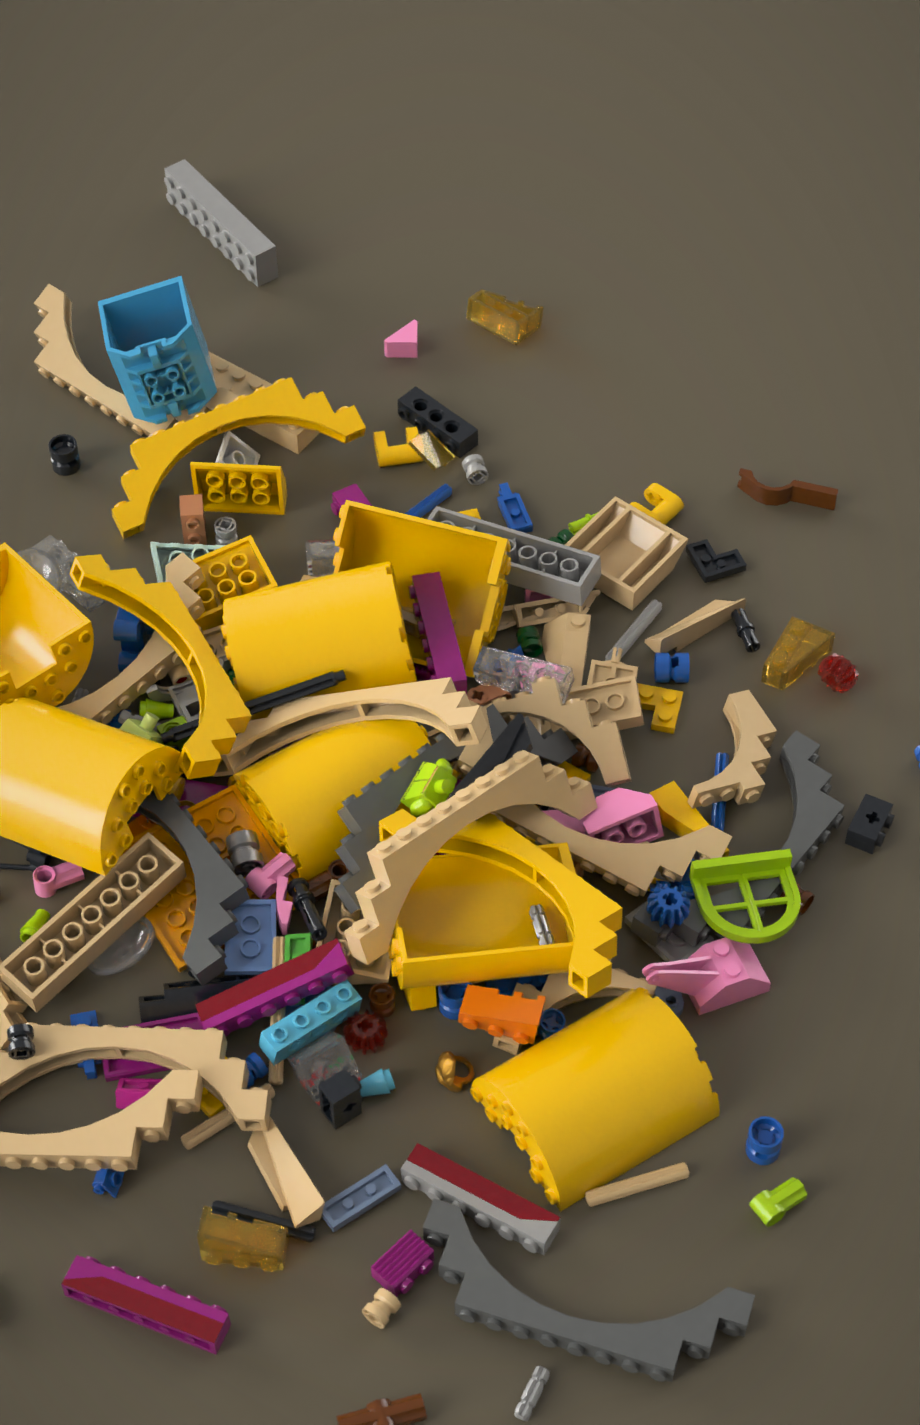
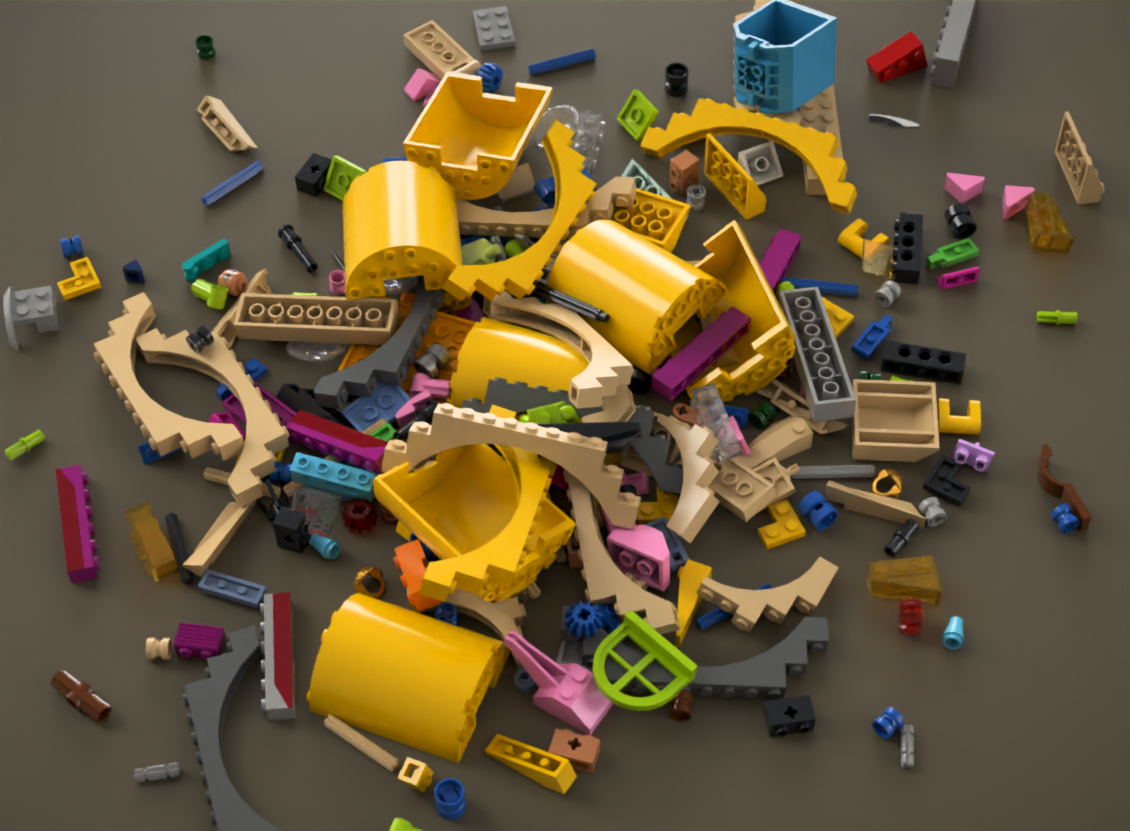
camera: 55 degrees right, 0 degrees up
(81, 509) = (637, 115): none -> lime tile
(212, 286) = (897, 58): none -> red wedge
(276, 340) = (892, 121): none -> sticker
(294, 1100) = (276, 504): none -> black plant
(443, 368) = (960, 221): none -> black wheel
(451, 319) = (1015, 199): none -> bright pink slope
(461, 249) = (1077, 164): none -> tan slope
(473, 397) = (952, 254): none -> bright green hinge
(501, 412) = (958, 278): none -> dark pink slope
(573, 494) = (923, 362): none -> black brick
(606, 377) = (1057, 317): none -> lime axle
(682, 591) = (896, 490): none -> pearl gold piece
(705, 524) = (973, 455): none -> lavender hips
(719, 1152) = (421, 777): none -> yellow brick
(744, 590) = (931, 509): none -> light grey wheel
(769, 1051) = (541, 766): none -> yellow slope
(783, 1009) = (585, 752): none -> nougat brick
(820, 509) = (1066, 520): none -> blue wheel
(875, 658) = (953, 635): none -> medium azure cone

